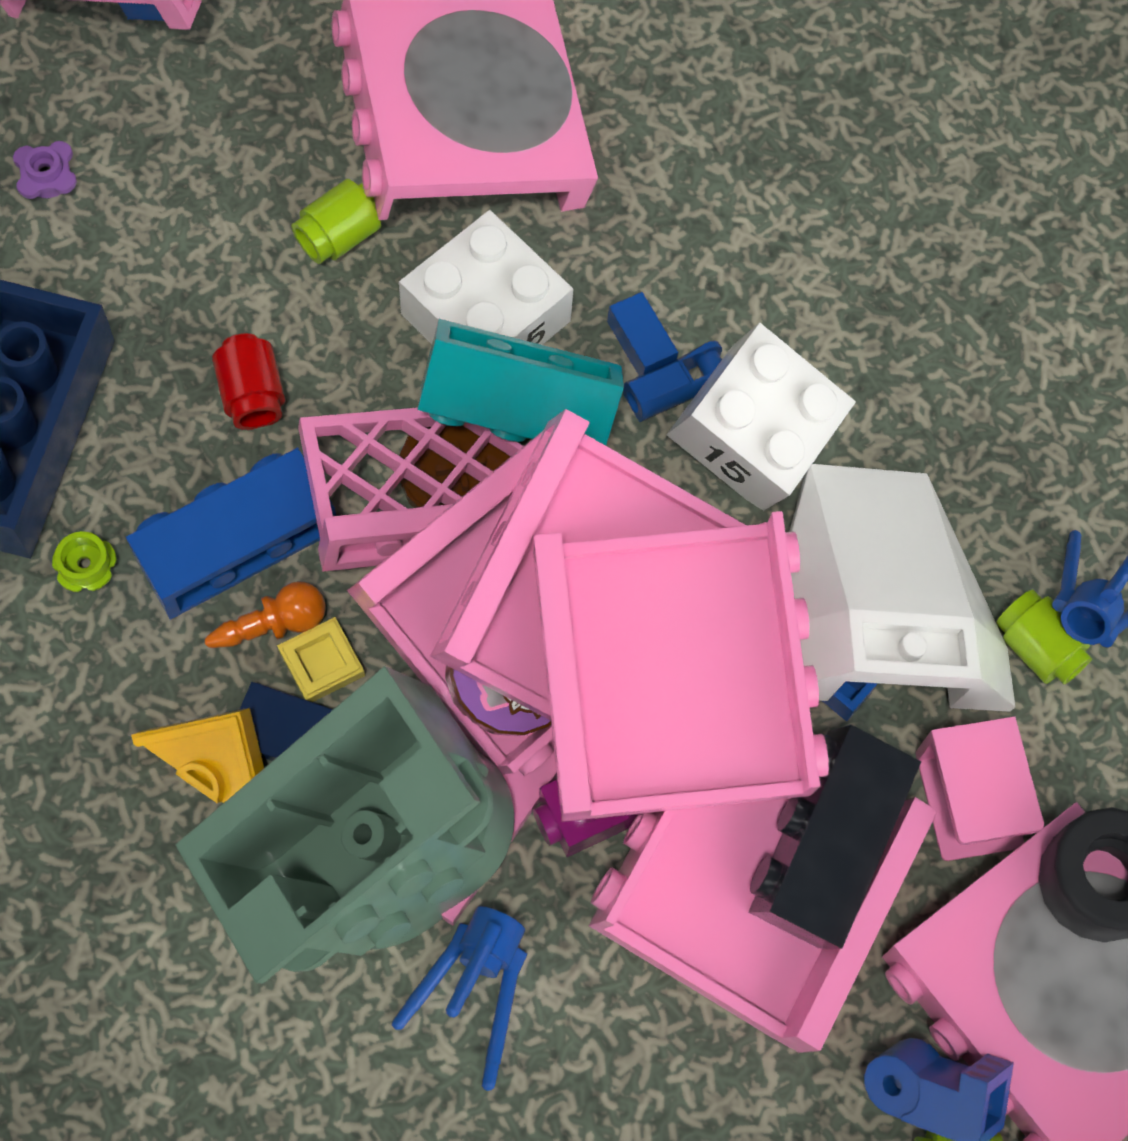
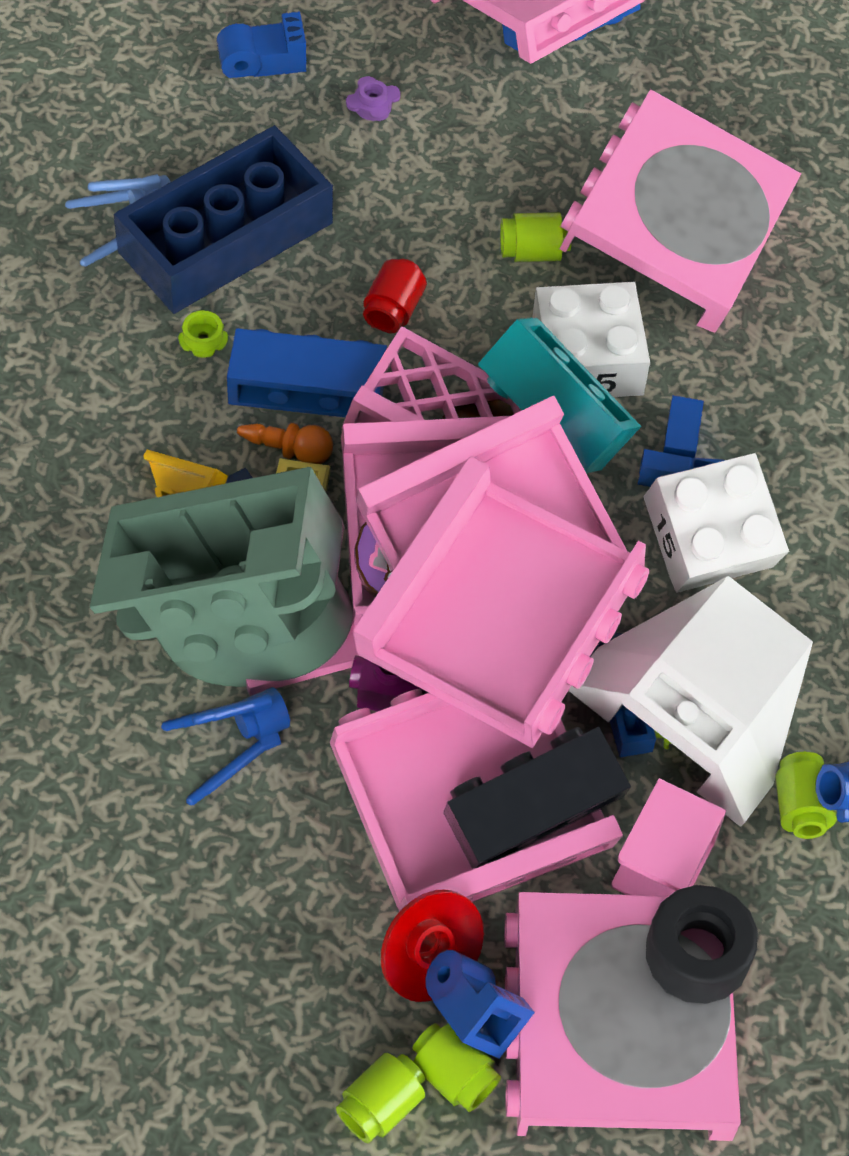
camera: 40 degrees right, 10 degrees down
(851, 1041) = (423, 930): none -> red dish

